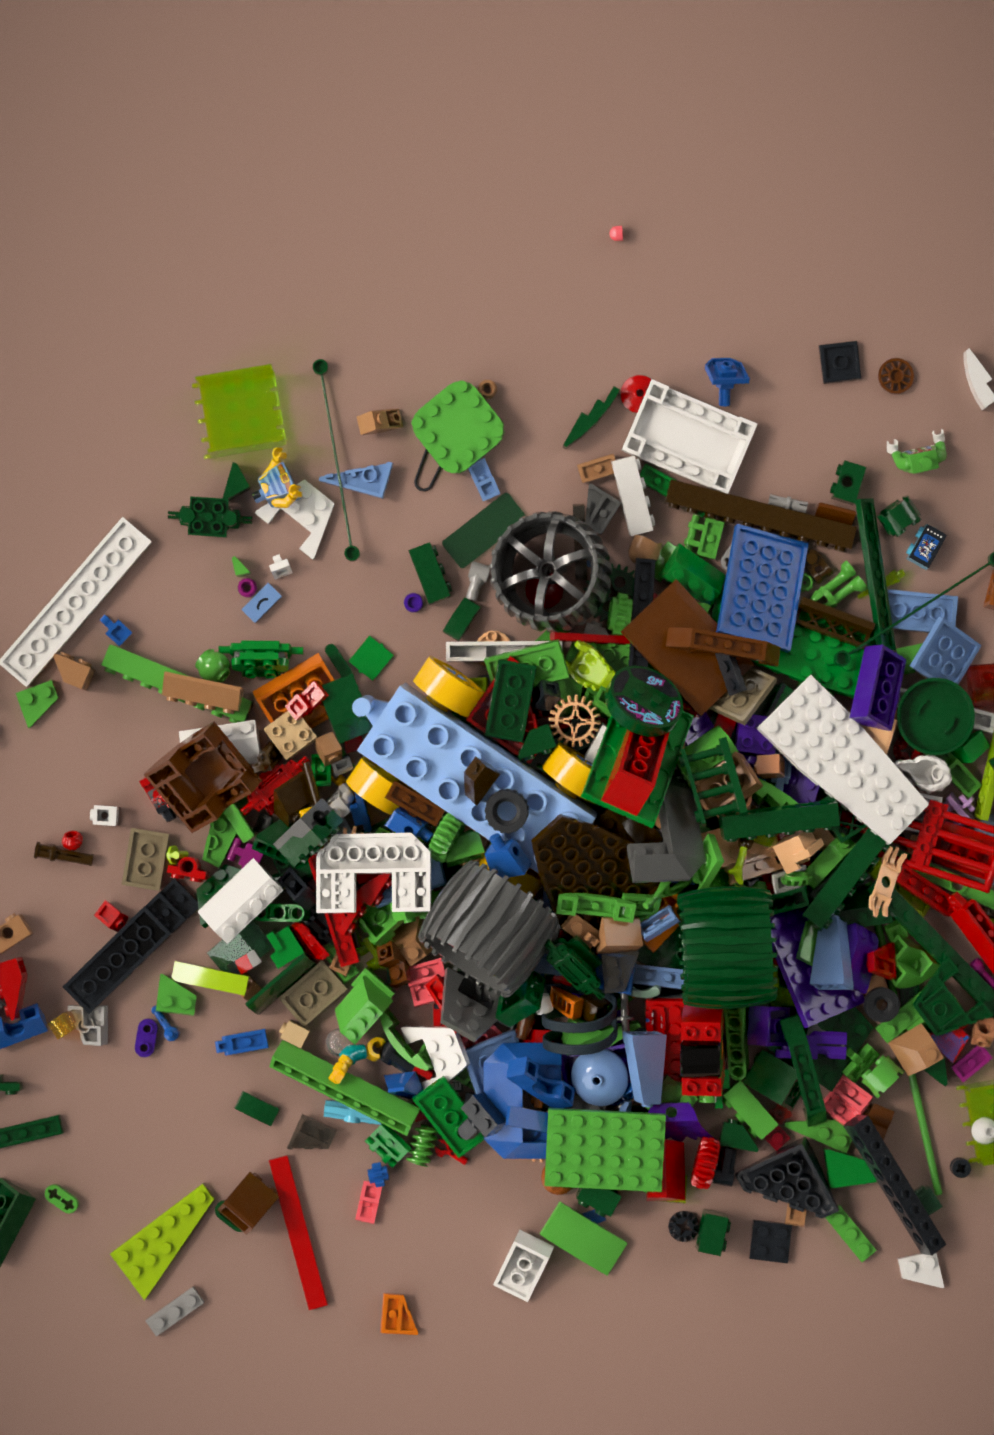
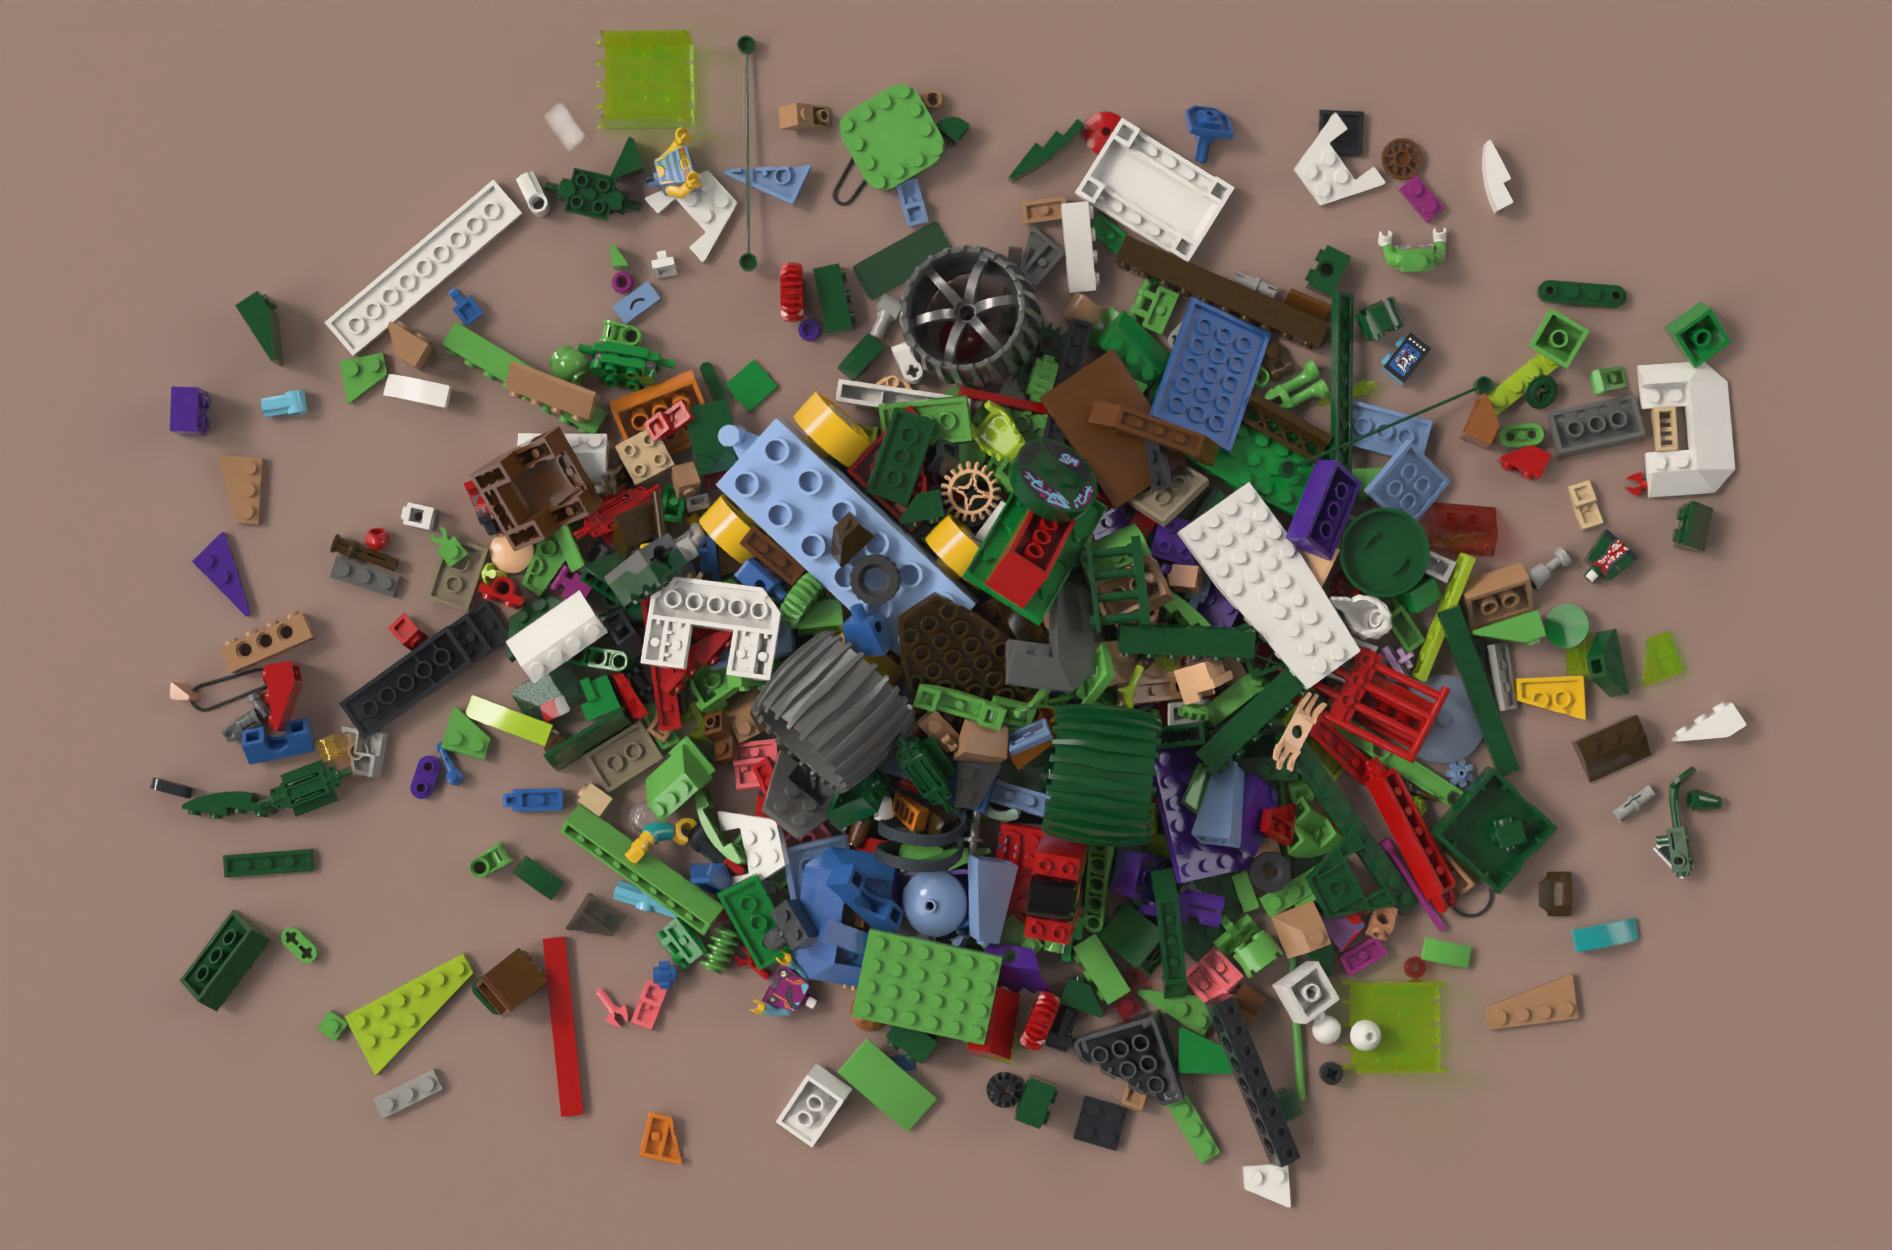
camera: 10 degrees right, 0 degrees up
(46, 1063) = (307, 788): none -> dark green piece
(67, 874) = (365, 576): none -> dark grey plate
(86, 708) = (417, 391): none -> white slope
(101, 1263) = (332, 1025): none -> bright green plate
(136, 840) = (451, 549): none -> bright green plate
(158, 523) = (533, 192): none -> white piece
(176, 462) = (565, 127): none -> clear slope
(185, 839) = (505, 557): none -> light nougat dish
(214, 1100) = (492, 860): none -> bright green piece
(249, 631) = (618, 333): none -> bright green piece
(337, 1210) = (612, 1008): none -> coral bar
(393, 573) = (792, 292): none -> red gear
(484, 1171) = (786, 990): none -> torso
(500, 616) = (907, 361): none -> white piece
(508, 411) = (953, 128): none -> dark green brick
(832, 398) = (1325, 172): none -> white wing
(862, 1024) = (1245, 891): none -> bright green sticker
(917, 407) = (1421, 199): none -> magenta plate
(929, 1105) = (1306, 996): none -> white brick

